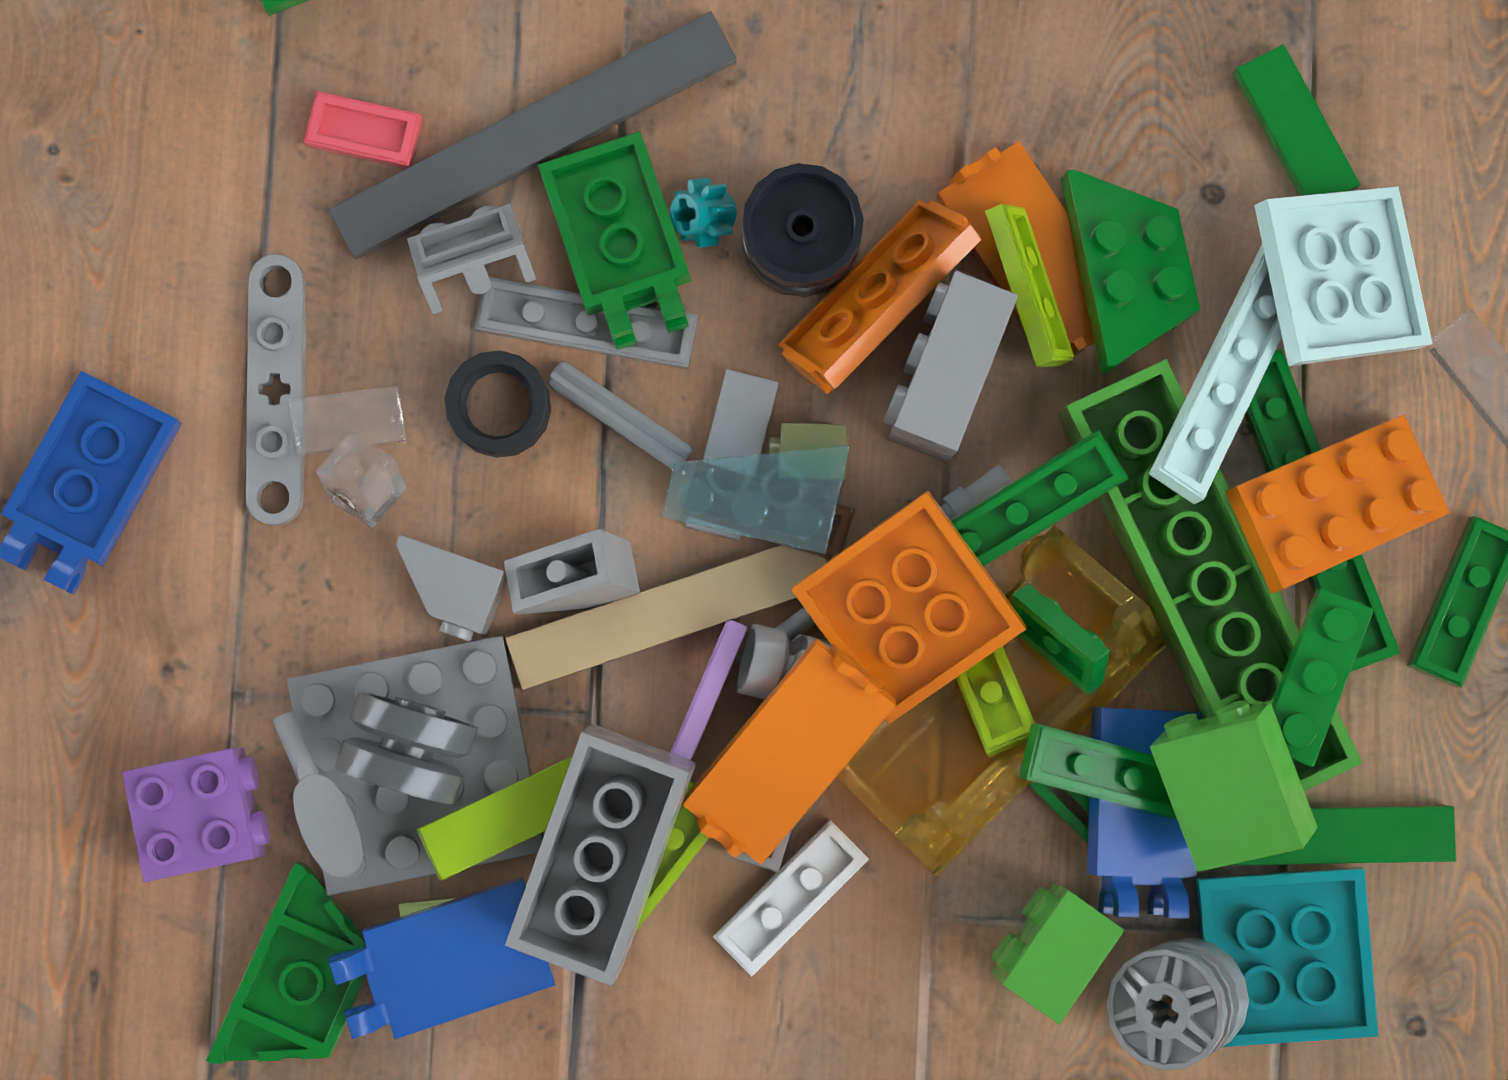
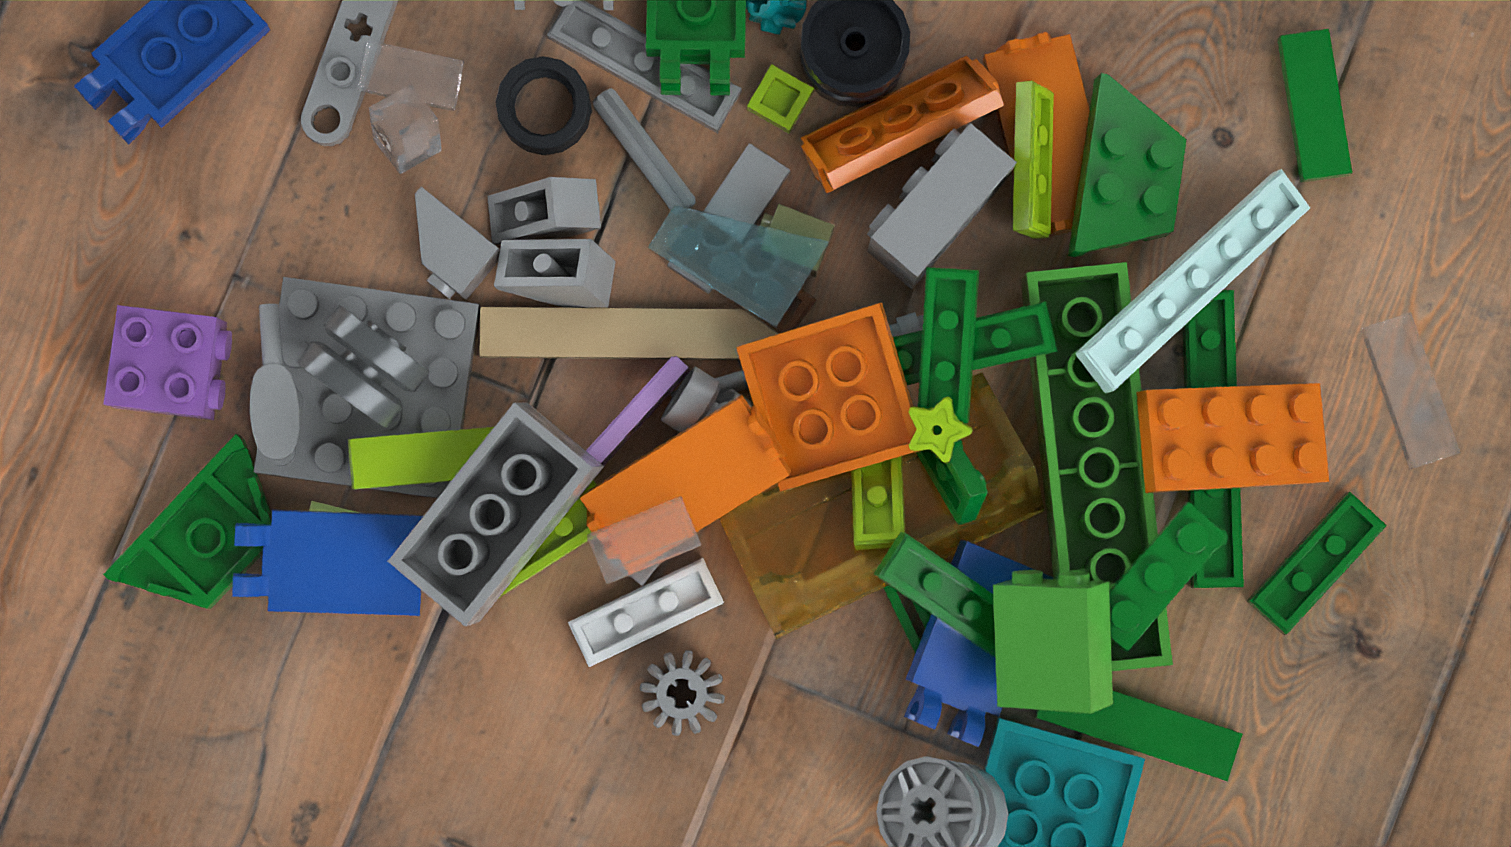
camera: 25 degrees right, 0 degrees up
(537, 514) = (544, 210): none -> light grey slope
(741, 311) = (780, 98): none -> lime tile
(766, 827) = (644, 540): none -> clear tile
(846, 983) = (668, 702): none -> light grey gear
(1012, 510) = (948, 339): none -> green tile
(1034, 588) = (943, 416): none -> lime plate
(1054, 950) = (853, 732): bright green brick -> none
(1342, 275) = (1307, 244): light aqua plate -> none

